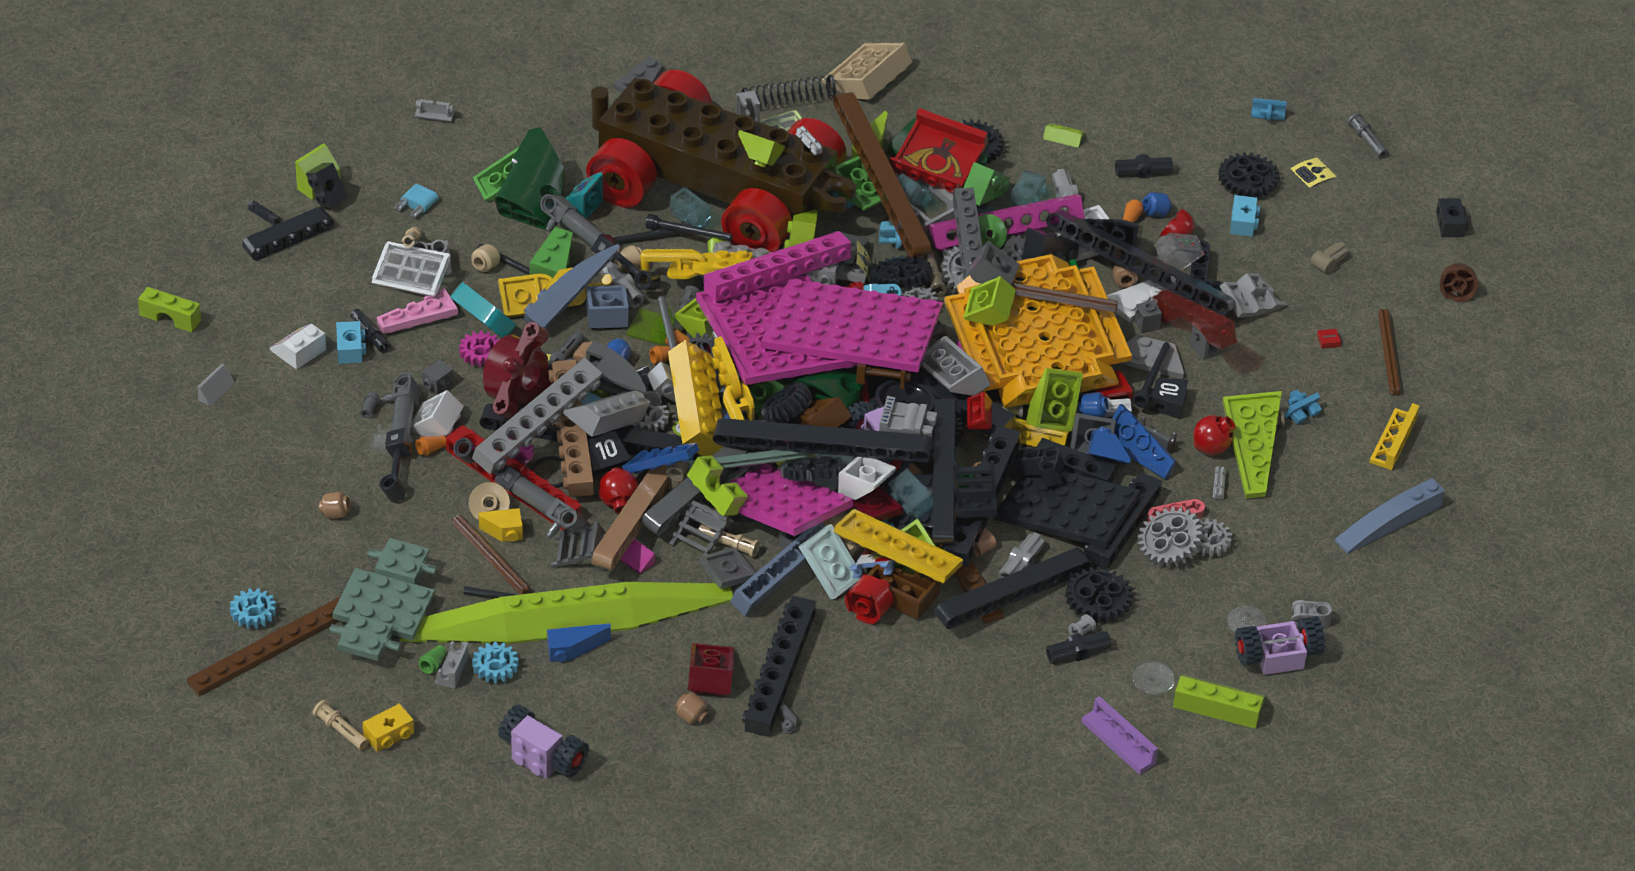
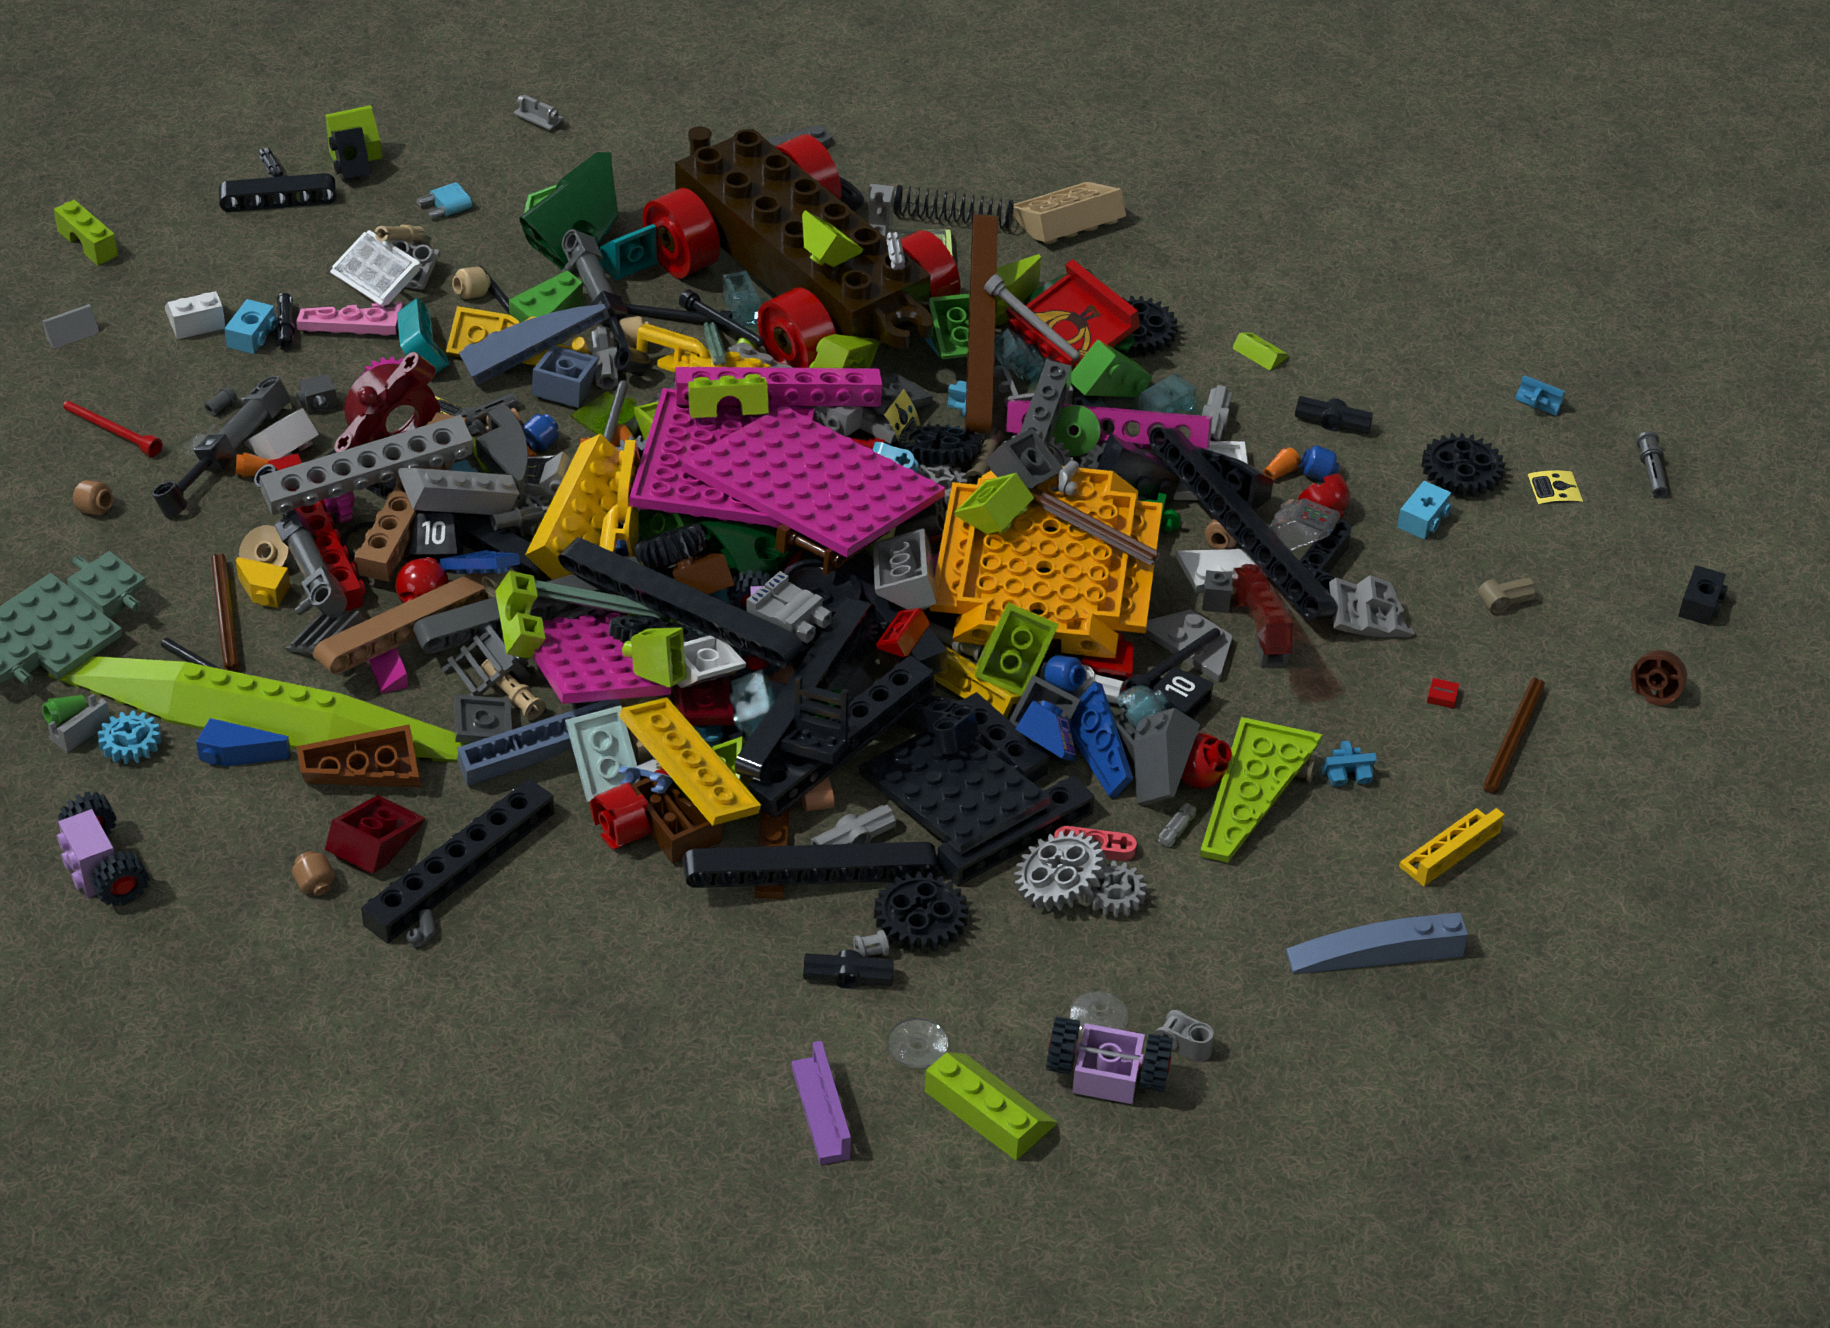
camera: 25 degrees right, 0 degrees up
(342, 454) = (149, 444): none -> red piece
(653, 420) = (517, 518): none -> dark grey axle
(674, 620) = (365, 759): none -> dark orange wedge
(703, 248) = (714, 343): none -> sand green axle
(741, 287) = (706, 394): none -> lime arch
(838, 480) = (658, 655): none -> lime torso
(884, 145) = (996, 286): none -> light grey piece
(1025, 268) = (1065, 476): none -> light grey arm
(1158, 412) = (1141, 702): none -> clear light blue cylinder
(1191, 439) = (1161, 754): none -> dark grey slope

